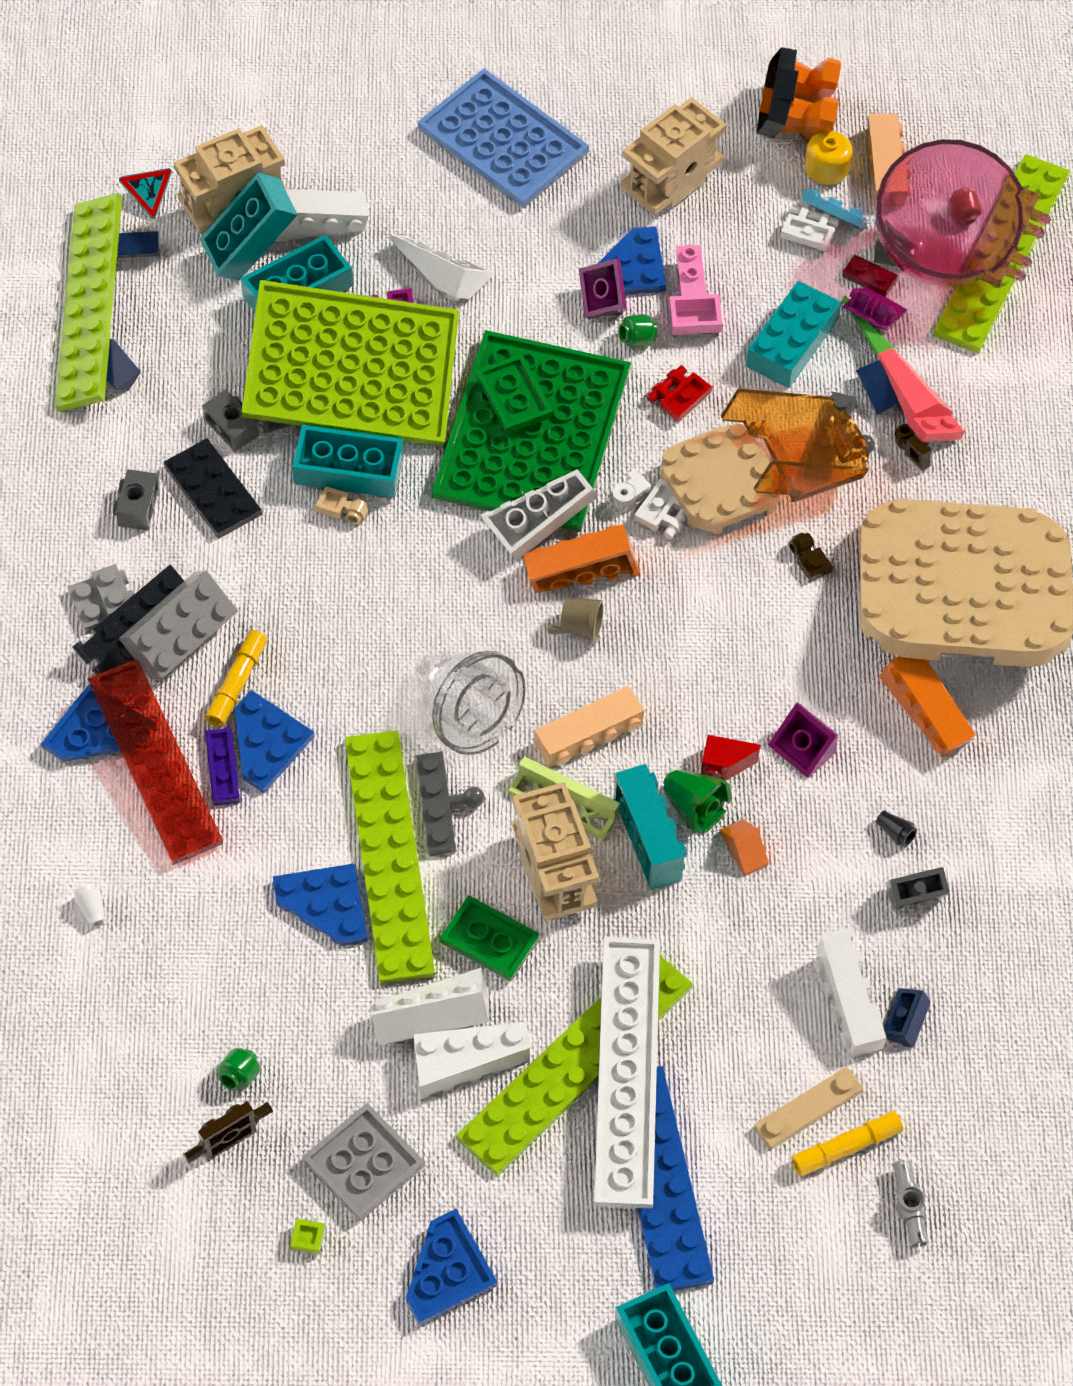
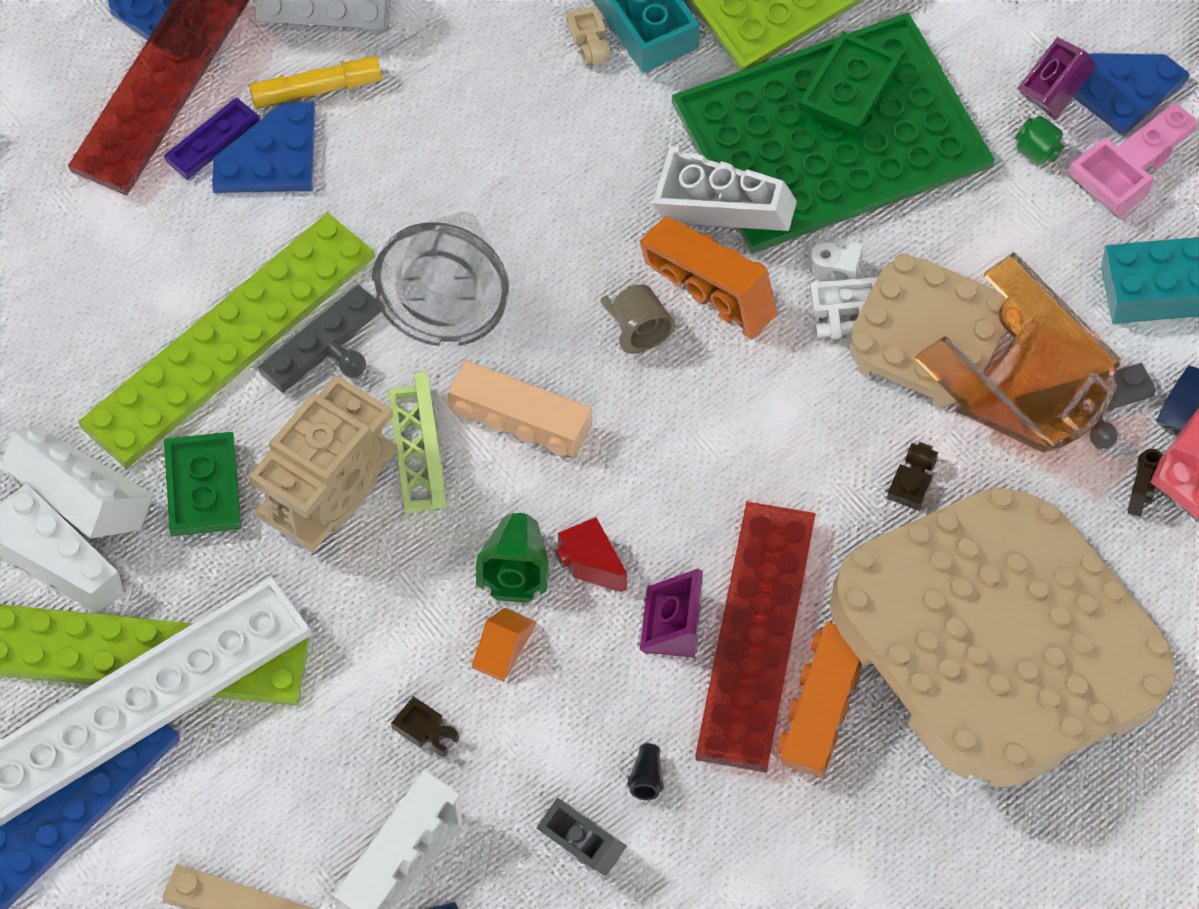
camera: 55 degrees right, 0 degrees up
(325, 901) = (132, 321): blue plate -> none
(649, 826) = (438, 534): teal brick -> none
(684, 397) = (1002, 234): red plate -> none
(766, 927) = (422, 724): none -> dark brown plate
(851, 710) = (755, 637): none -> clear red plate

